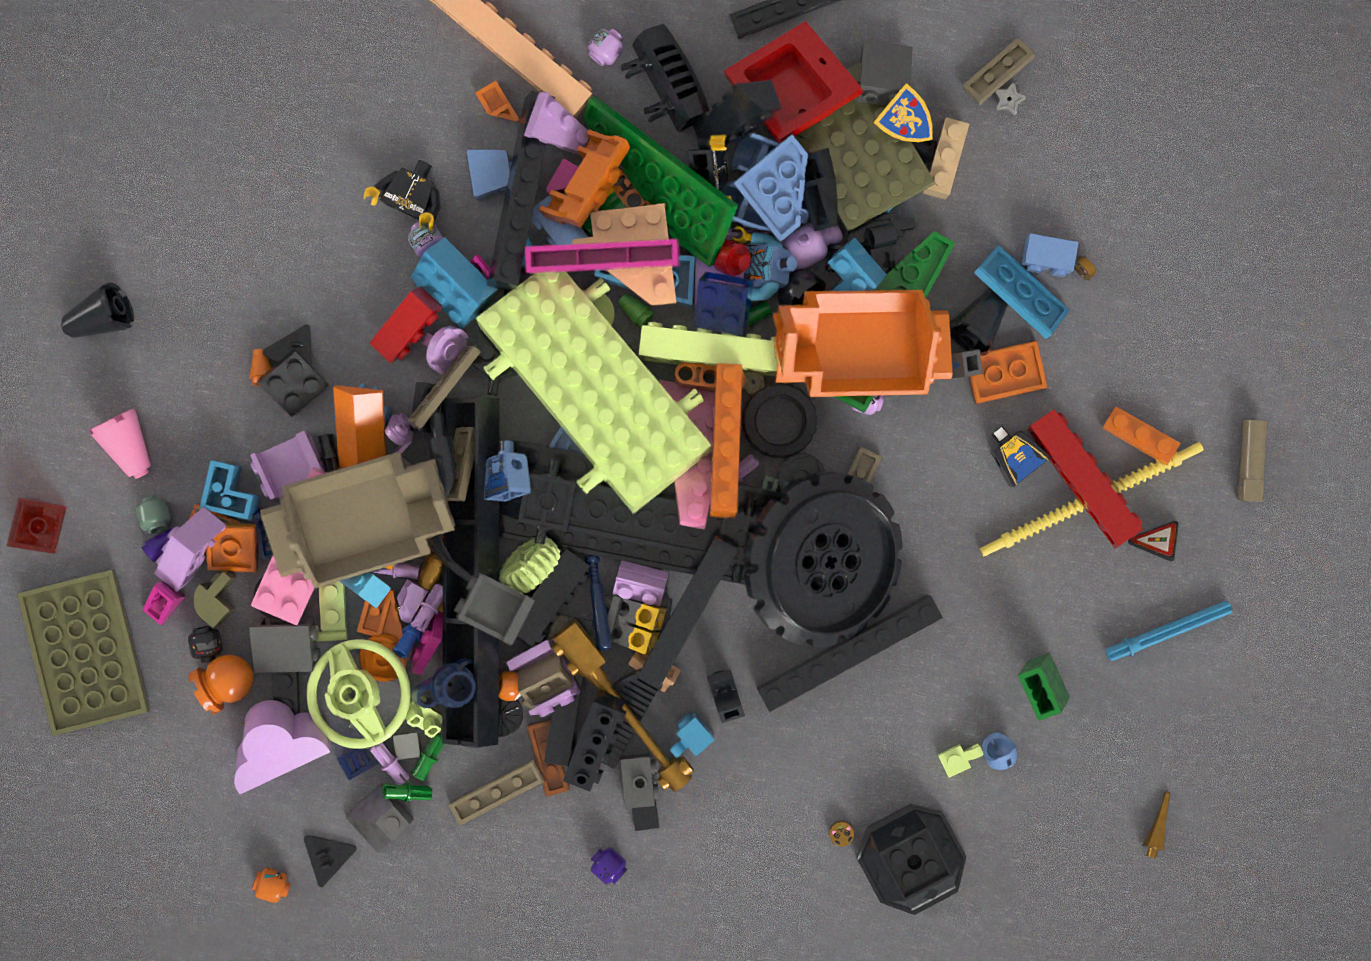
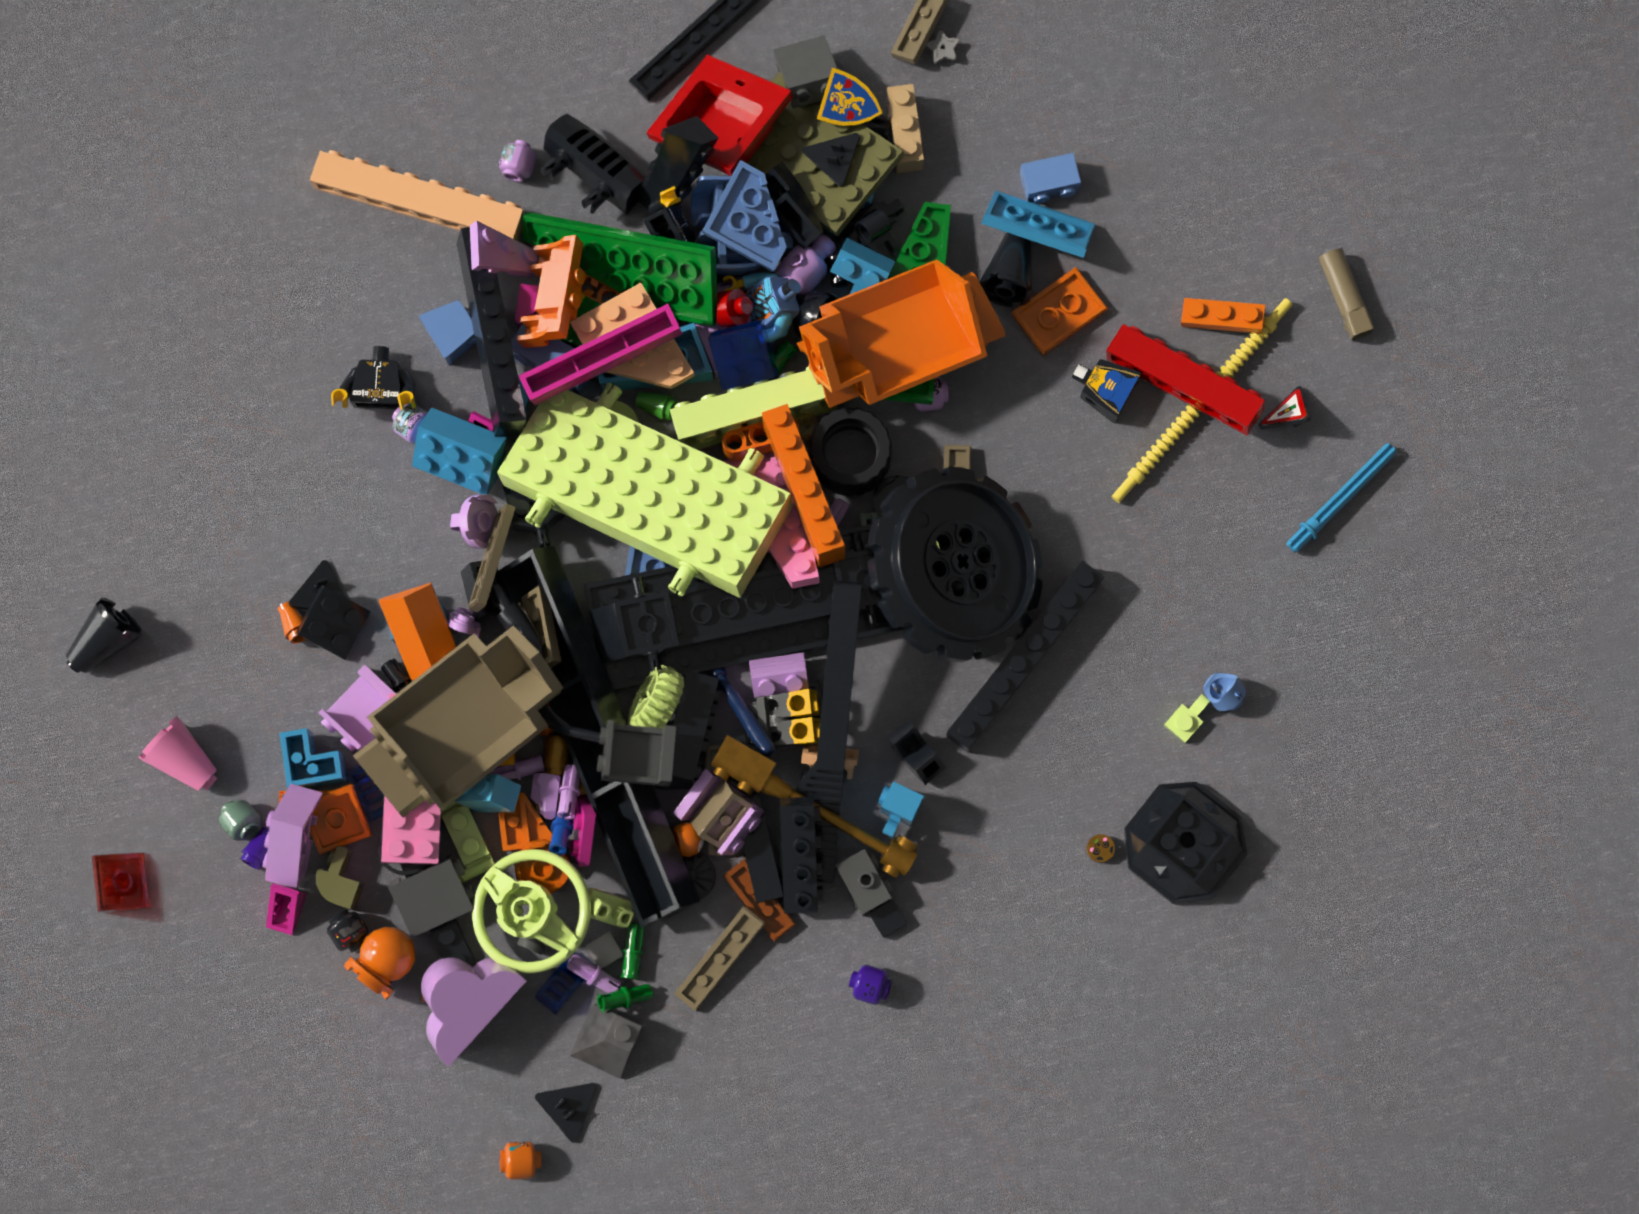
camera: 20 degrees left, 10 degrees down
(83, 652) = (221, 997): olive plate -> none
(406, 325) = (427, 514): red brick -> none
(449, 686) = (624, 854): dark blue beam -> none
(496, 102) = (428, 260): orange slope -> none
(506, 474) = (593, 615): medium blue torso -> none
(874, 161) = (834, 156): none -> black piece
(966, 363) = (1014, 317): dark grey brick -> none
(1044, 686) = (1238, 602): green brick -> none
(1084, 268) = (1091, 177): pearl gold tile -> none
(1156, 835) = (1427, 713): pearl gold piece -> none

